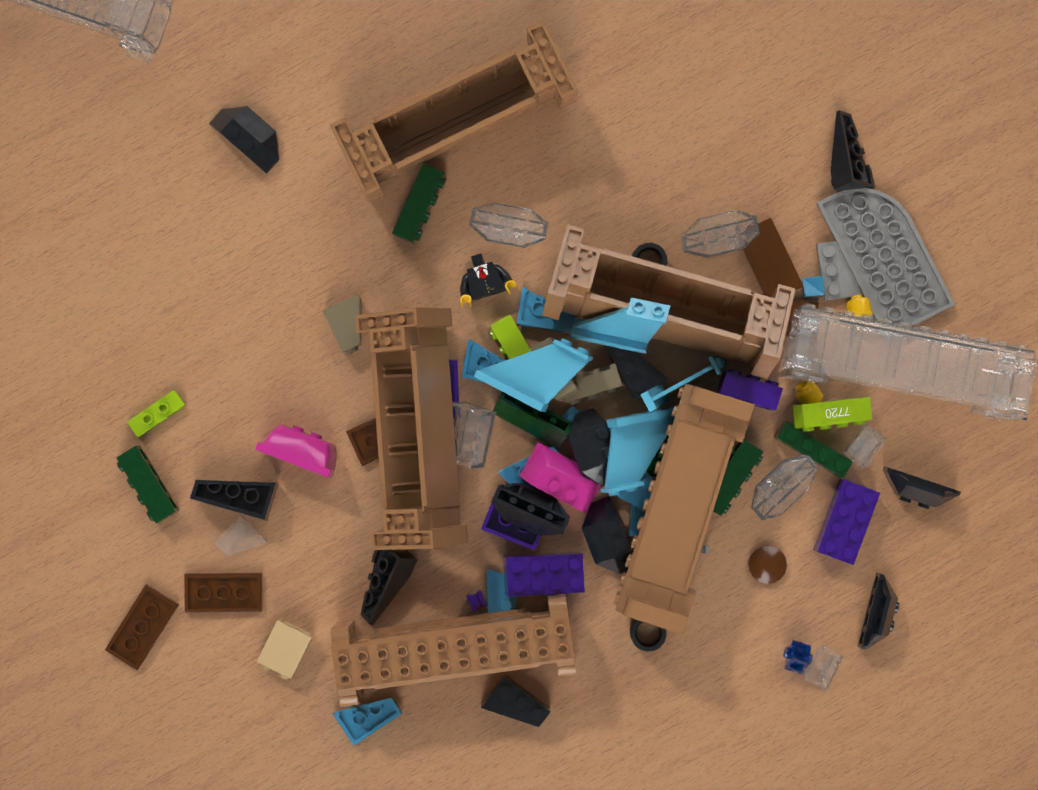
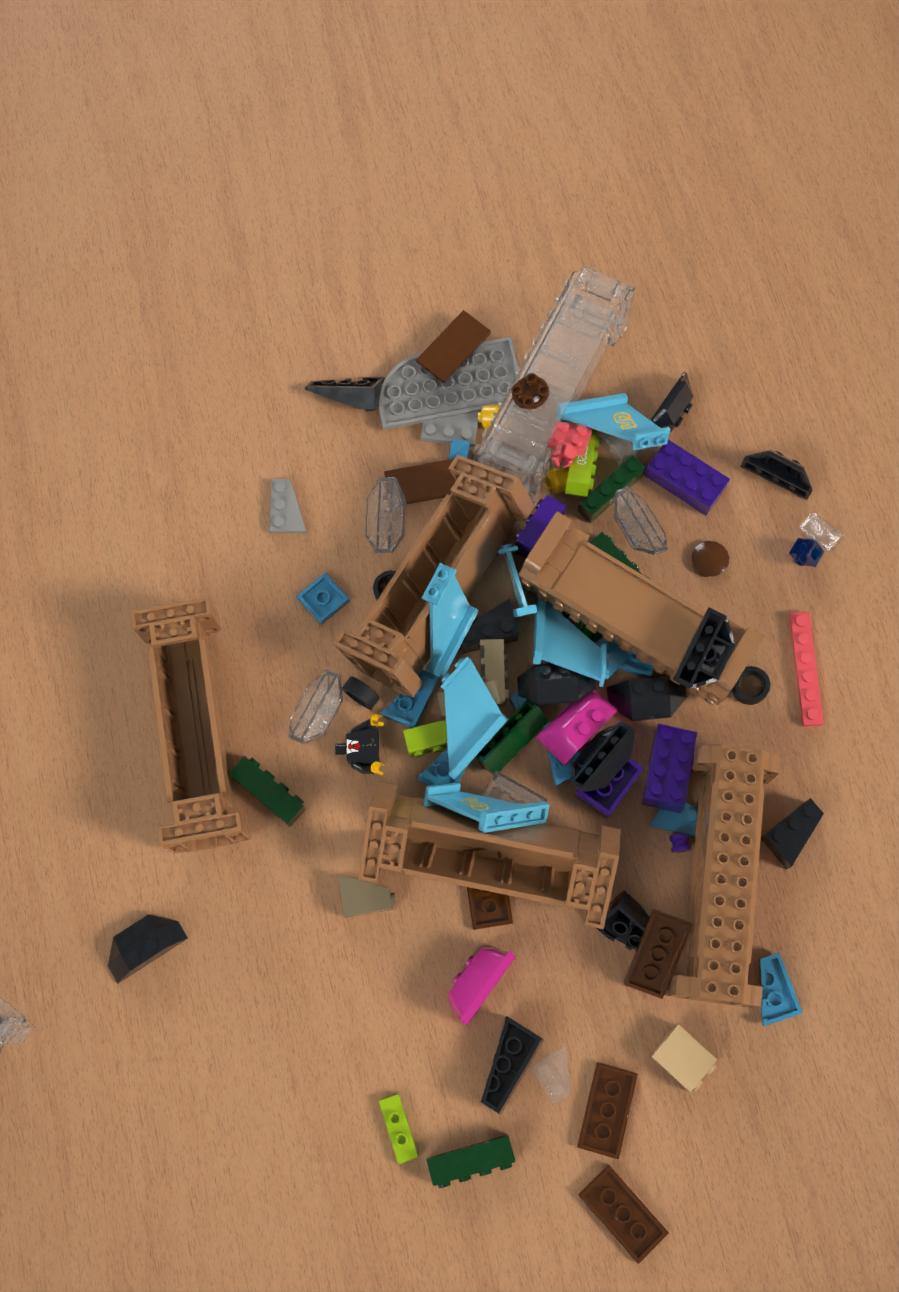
camera: 70 degrees left, 15 degrees down
(368, 604) = (657, 953): none -> reddish brown tile
(449, 414) = (490, 812): none -> medium azure piece
(535, 263) = (360, 692): none -> black tyre
(622, 197) = (323, 598): none -> dark azure tile
(651, 582) = (706, 652): none -> black wedge
(680, 681) = (806, 669): none -> coral plate
(703, 130) = (284, 509): none -> light grey wing
(845, 396) = (569, 442): none -> coral plate
(881, 343) = (530, 392): none -> reddish brown dish
(886, 438) = (617, 418): none -> medium azure piece
(926, 248) = (453, 346): none -> reddish brown tile

